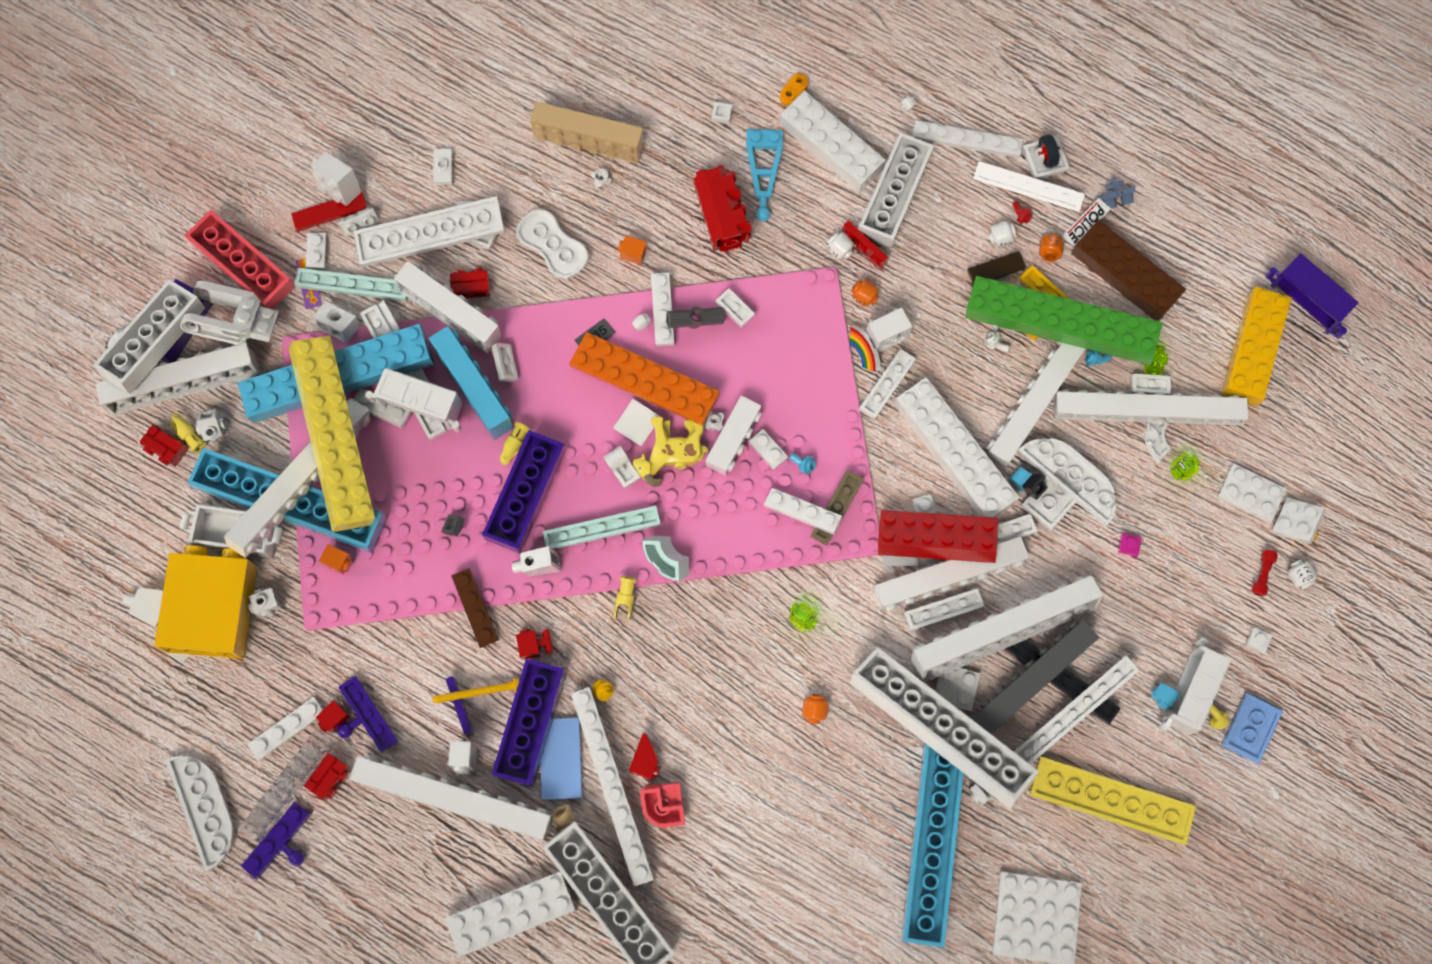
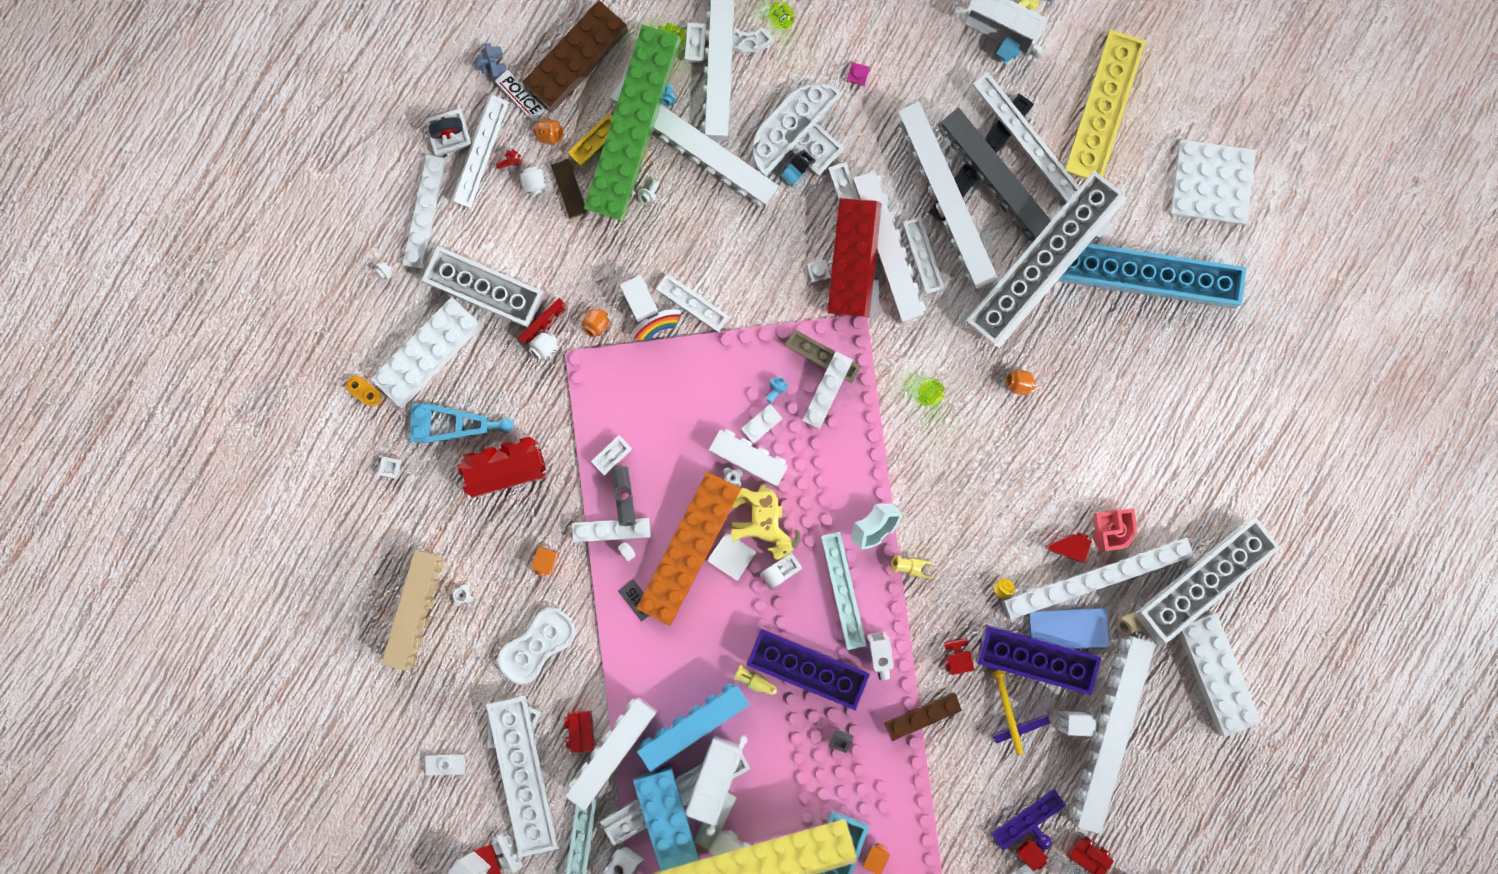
camera: 90 degrees left, 10 degrees up
(504, 362) = (668, 692): white plate -> none
(955, 450) = (763, 237): white brick -> none
(958, 688) = (1000, 245): white plate -> none

